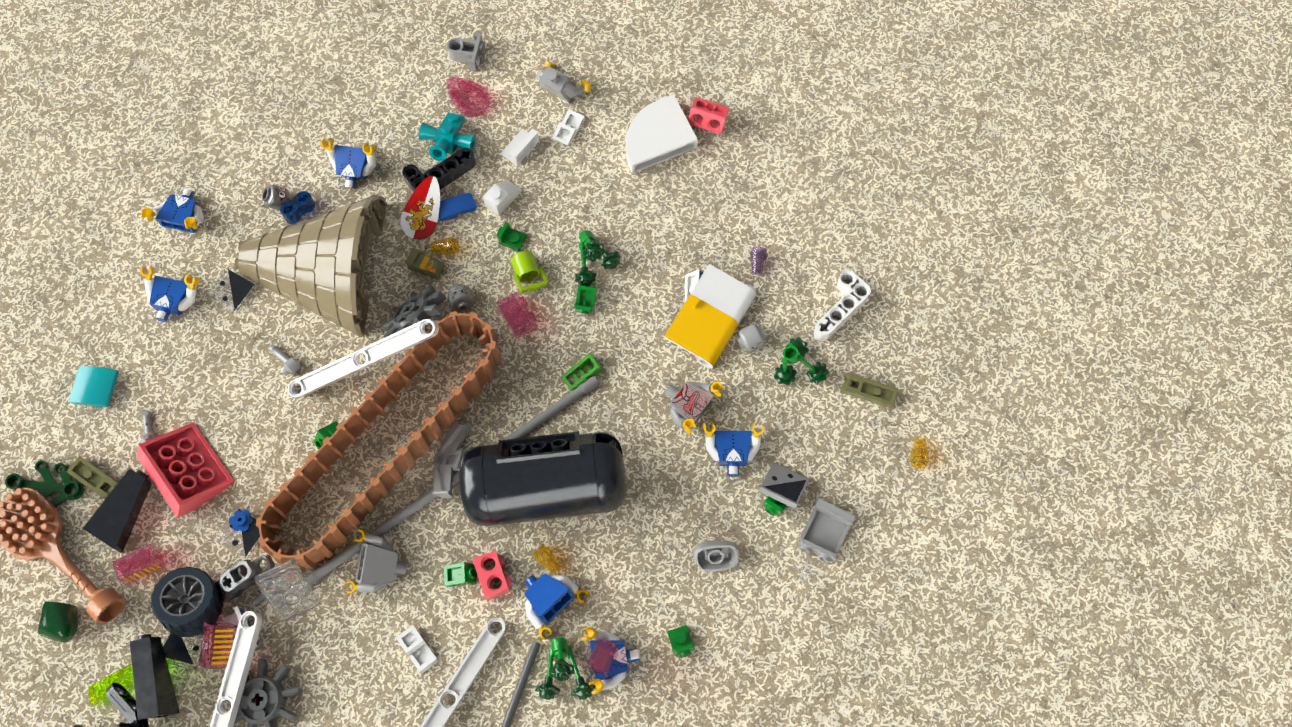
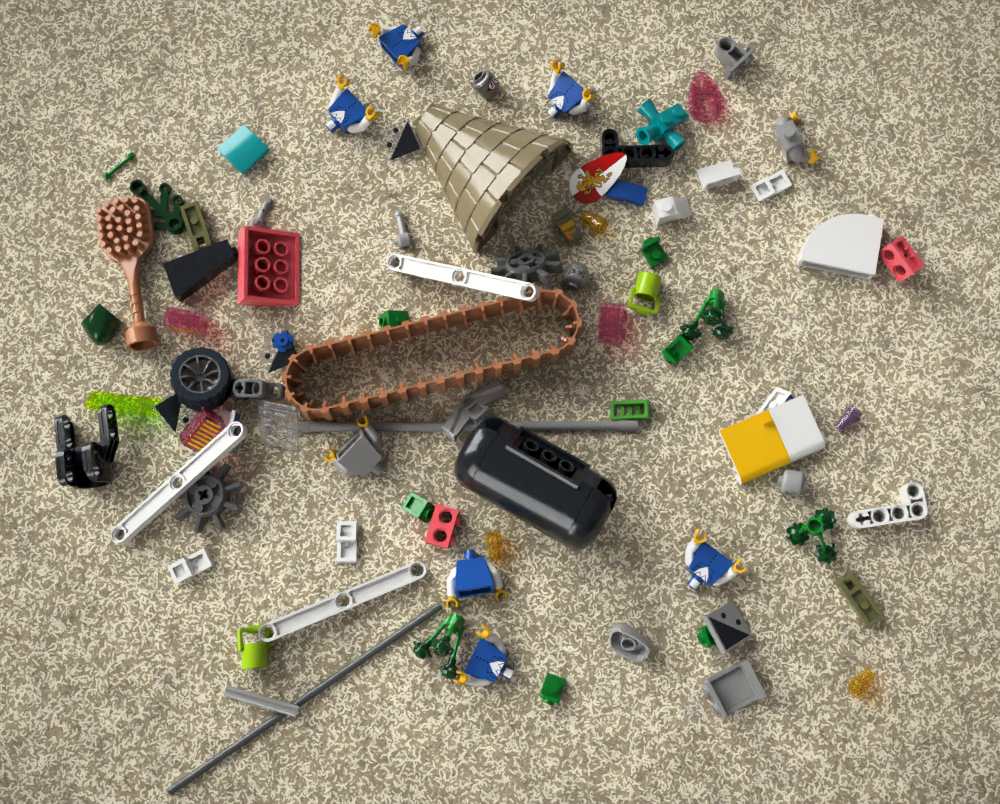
camera: 35 degrees right, 10 degrees up
(152, 679) = (137, 423): black slope -> none
(297, 207) = (497, 104): clear blue axle -> none
(603, 657) = (480, 662): clear pink brick -> none
(691, 402) = (701, 501): light grey torso -> none

